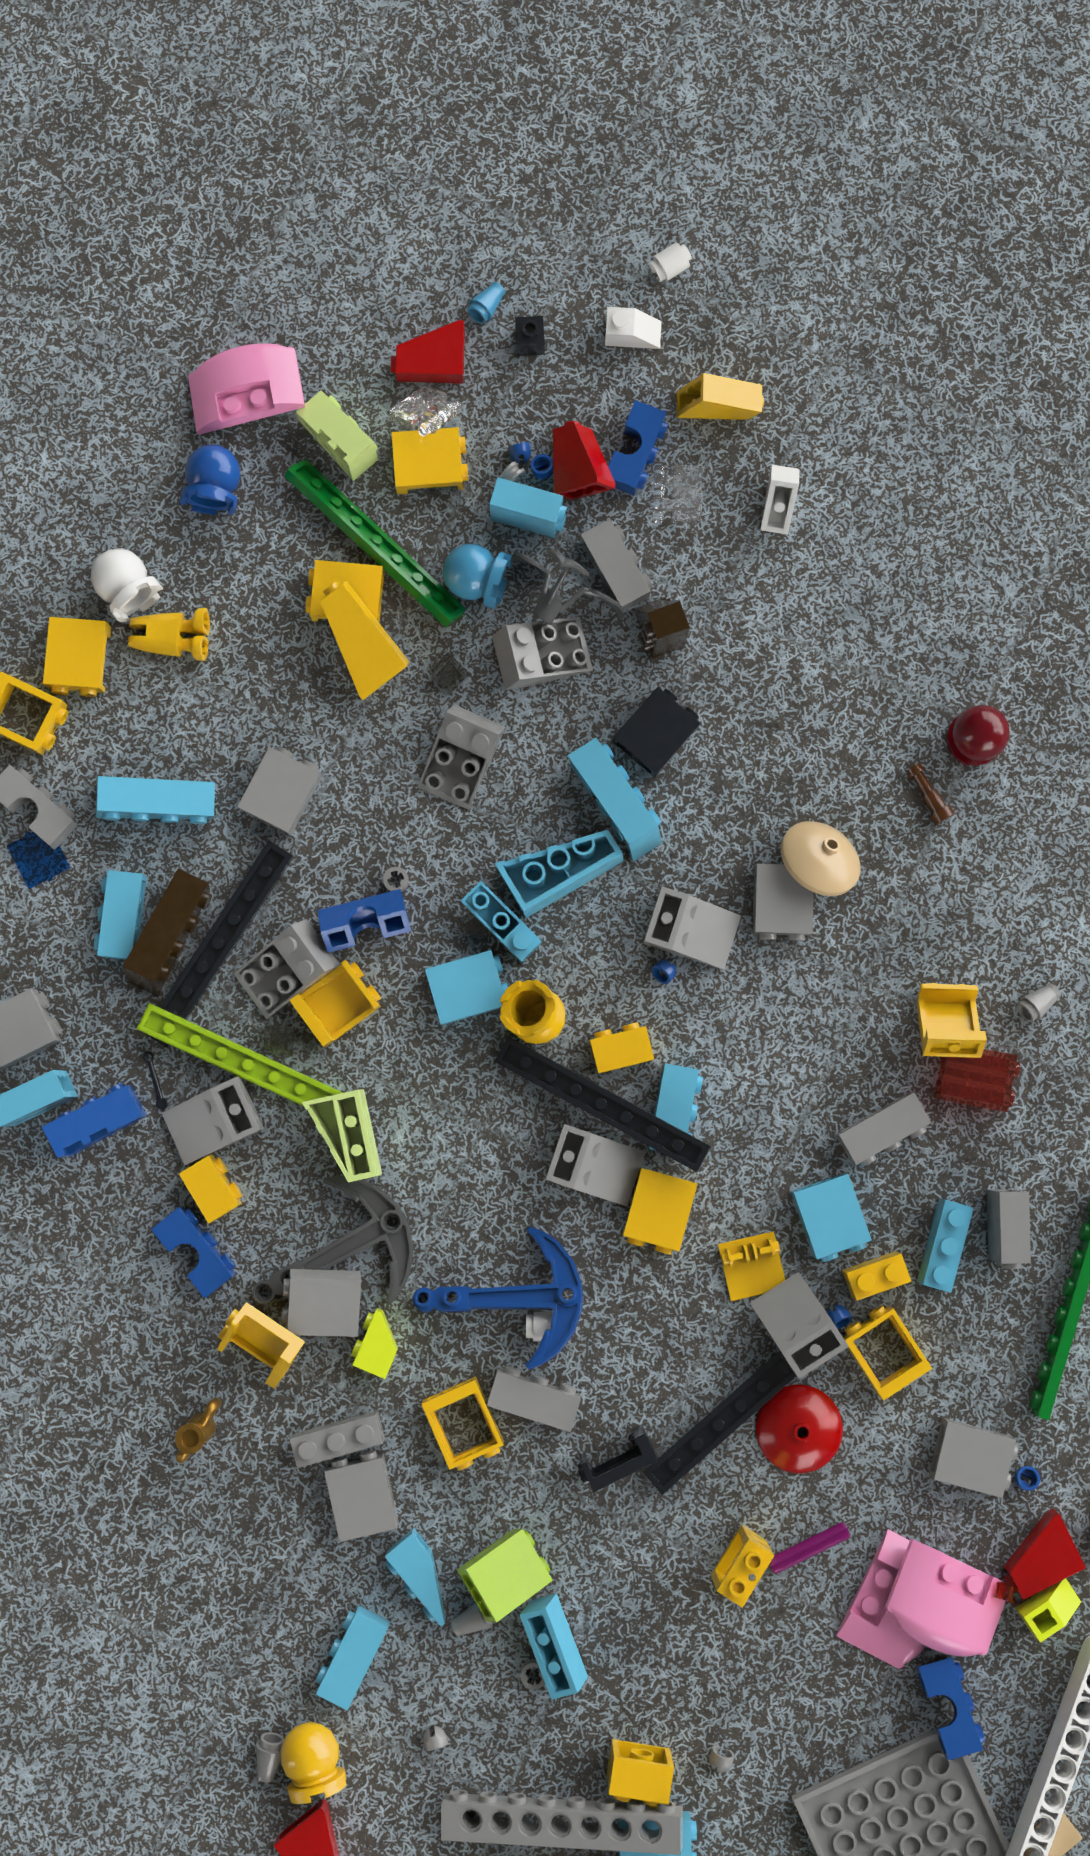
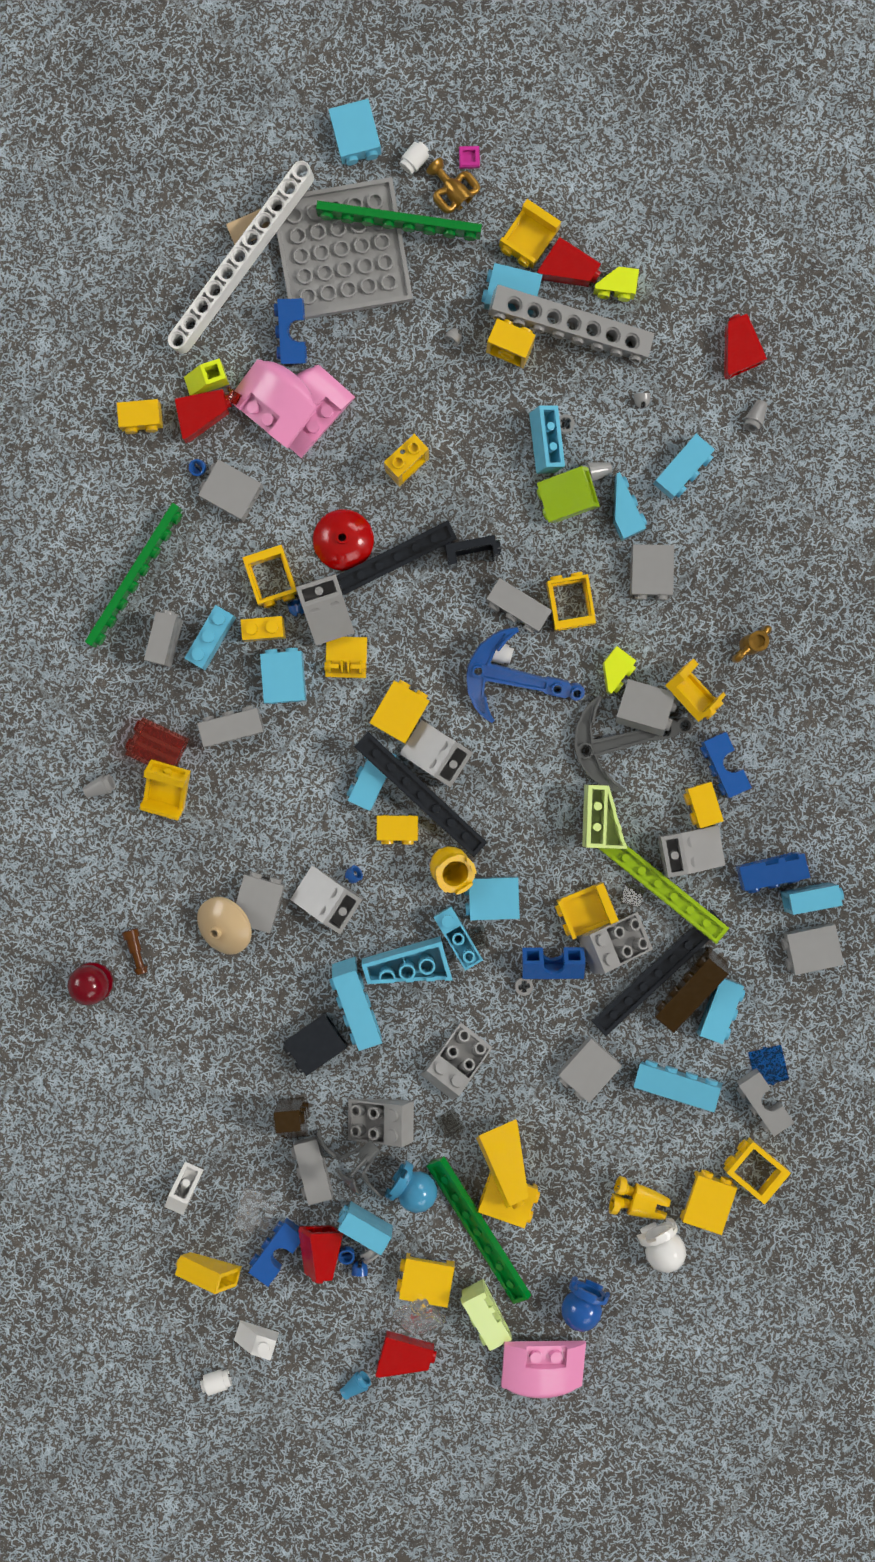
camera: 160 degrees left, 5 degrees up
(161, 1103) = (725, 906): black hinge -> none
(310, 1760) = (728, 408): yellow tile -> none
(337, 1439) = (658, 613): light grey brick -> none
(530, 335) = (330, 1353): black brick -> none
(809, 1547) = (357, 459): magenta axle -> none

